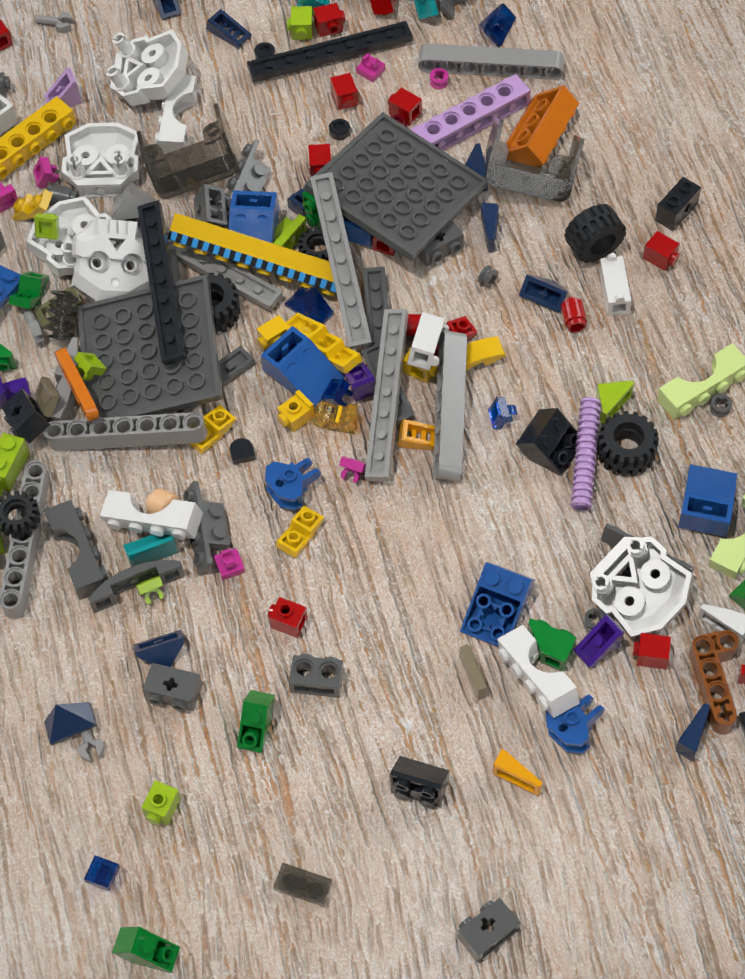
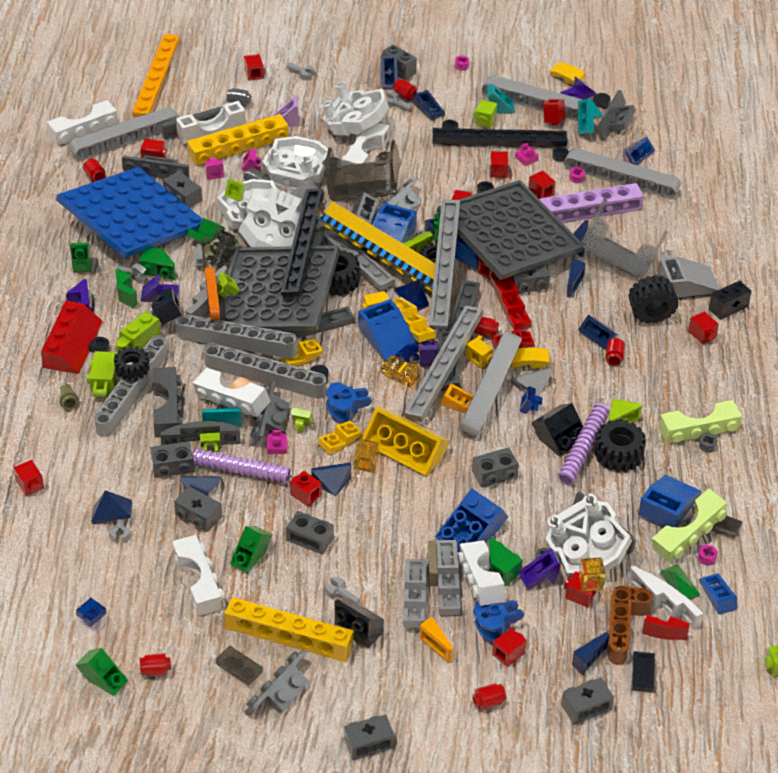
camera: 15 degrees right, 15 degrees down
(31, 205) = (223, 177): yellow slope -> none
(46, 396) = (187, 298): dark tan tile -> none
(111, 623) = (172, 459): none -> dark grey brick
(160, 803) = (155, 581): lime brick -> none
(167, 461) = (265, 370): none -> light grey beam
(185, 34) = (393, 99): none -> light grey bar
(188, 755) = (204, 594): none -> white arch
(192, 15) = (405, 89): none -> red brick
(200, 610) = (241, 466): none -> lavender piece
(205, 918) = (155, 664): none -> red brick
(246, 520) = (301, 418): none -> lime tile
(295, 411) = (370, 358): yellow brick -> none
(313, 592) = (332, 477): none -> dark blue slope
(328, 19) = (507, 116): red brick -> none
(341, 548) = (366, 455): none -> clear yellow brick
(342, 818) = (289, 629): none -> yellow brick
(352, 465) = (397, 403): dark pink tile -> none
(363, 897) = (283, 688): none -> bracket
(378, 514) = (405, 440): none -> yellow slope
(380, 742) = (339, 589): none -> light grey bar
(408, 54) = (559, 154): none -> black tile
(426, 341) = (488, 334): white brick -> none
(430, 283) = (511, 303): none -> red slope
(467, 718) = (414, 593): none -> light grey slope
(488, 276) = (558, 310): dark grey bush -> none
(492, 514) = (495, 467): none -> dark grey brick
(494, 380) = (533, 379): none -> light grey slope
(499, 687) = (448, 578): none -> light grey slope
(541, 126) = (643, 224): orange slope -> none
(601, 755) = (509, 647): none -> red brick
(603, 828) = (489, 696): none -> red brick
(614, 285) = (656, 340): white brick -> none
(618, 186) = (688, 276): none -> light grey slope
(665, 635) = (592, 574): none -> clear yellow brick
(706, 809) = (587, 700): none -> dark grey brick

